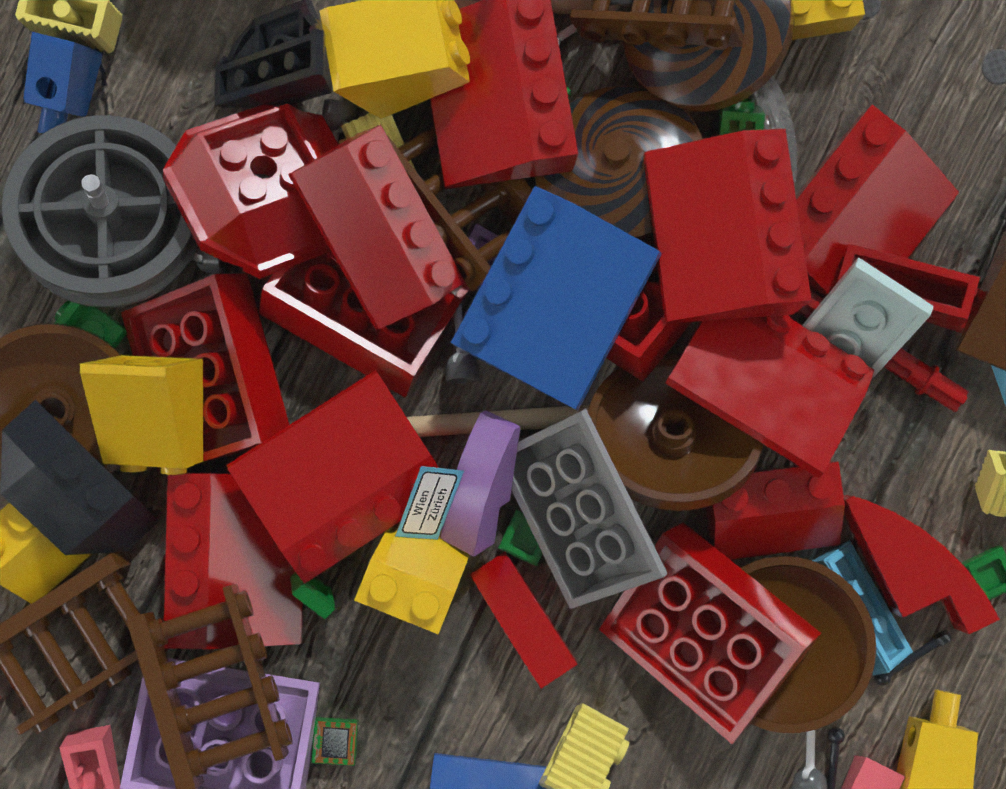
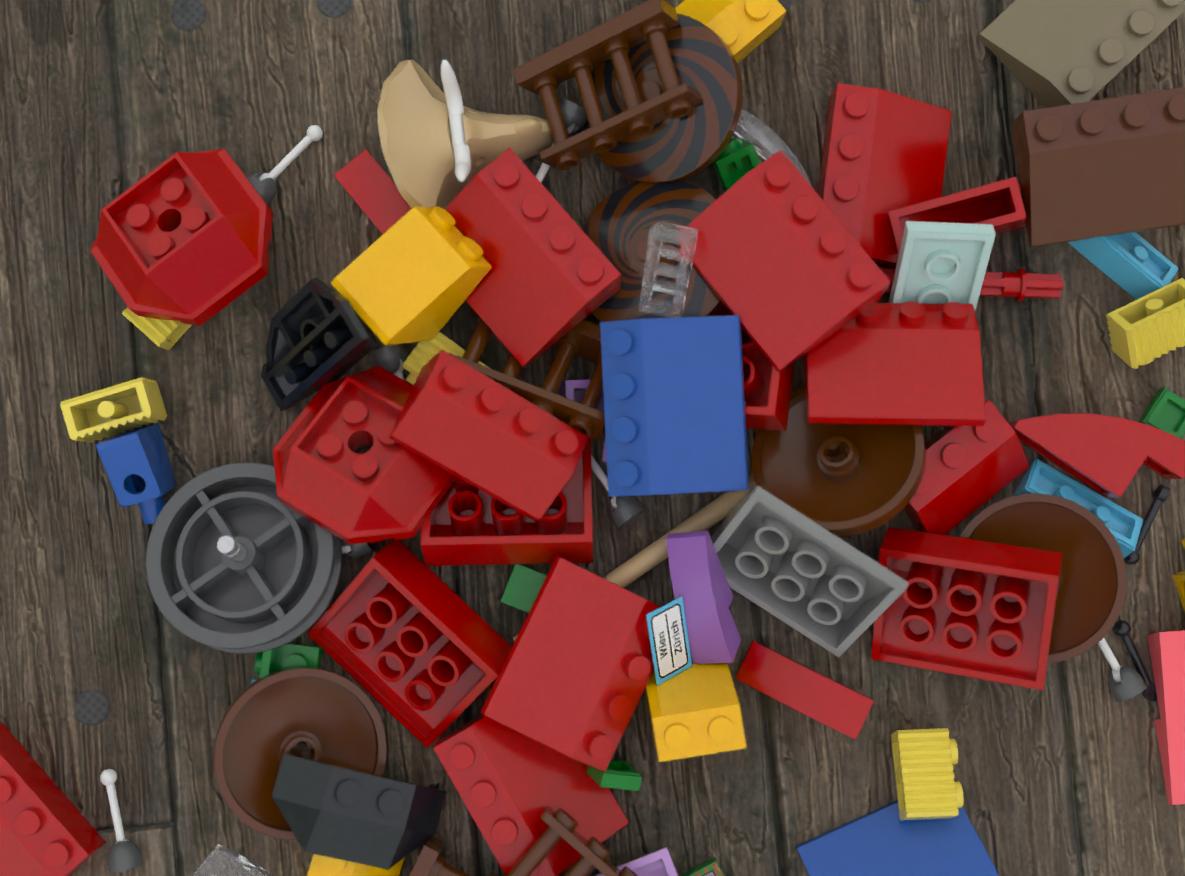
camera: 30 degrees left, 0 degrees up
(146, 411) = (385, 706): yellow slope -> none
(330, 381) = (523, 587): none -> green tile
(520, 540) = (760, 624): green tile -> none
(645, 172) = (674, 234): none -> clear slope

